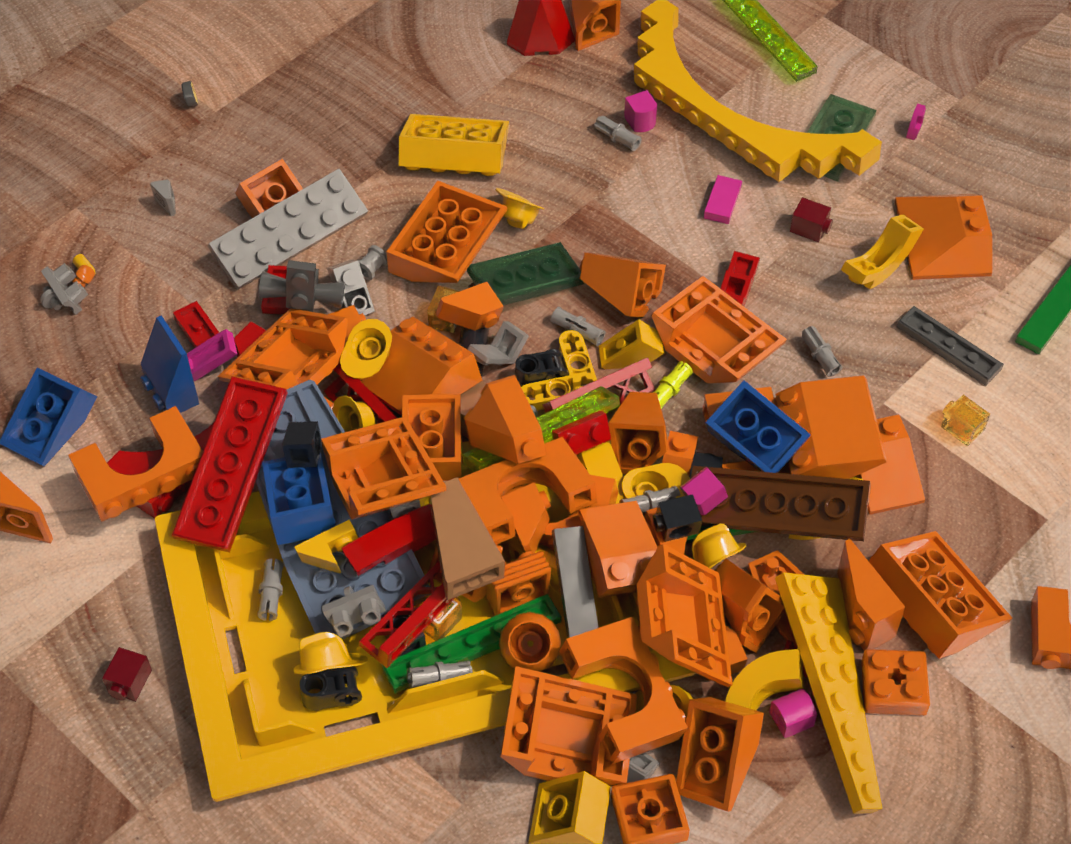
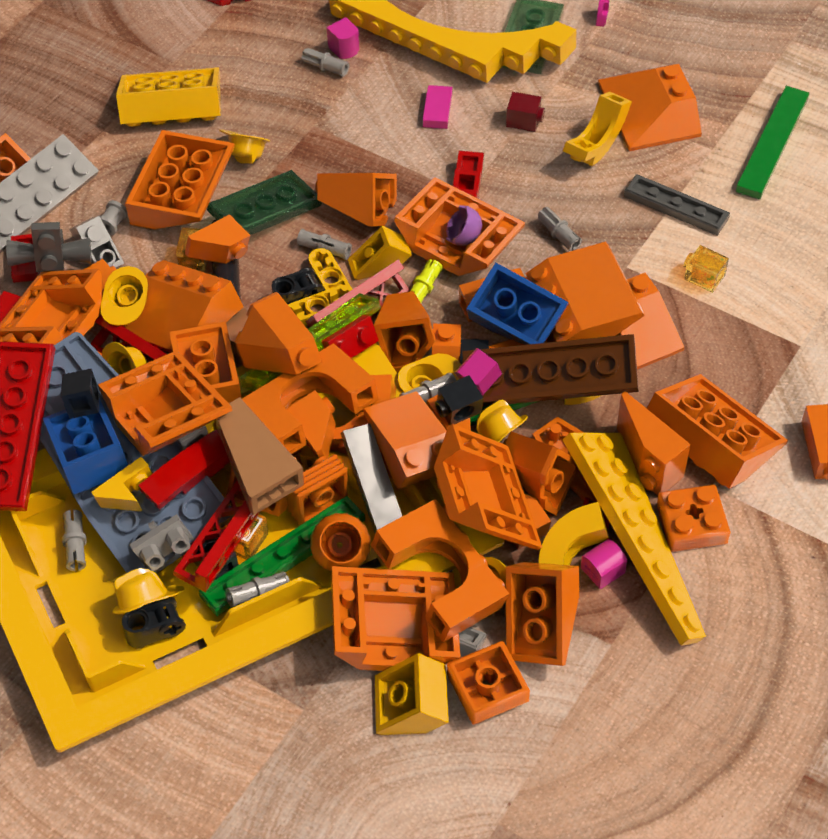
camera: 10 degrees left, 0 degrees up
(504, 347) = (257, 275): light grey bracket -> none
(722, 333) = (464, 226): none -> medium lavender hair

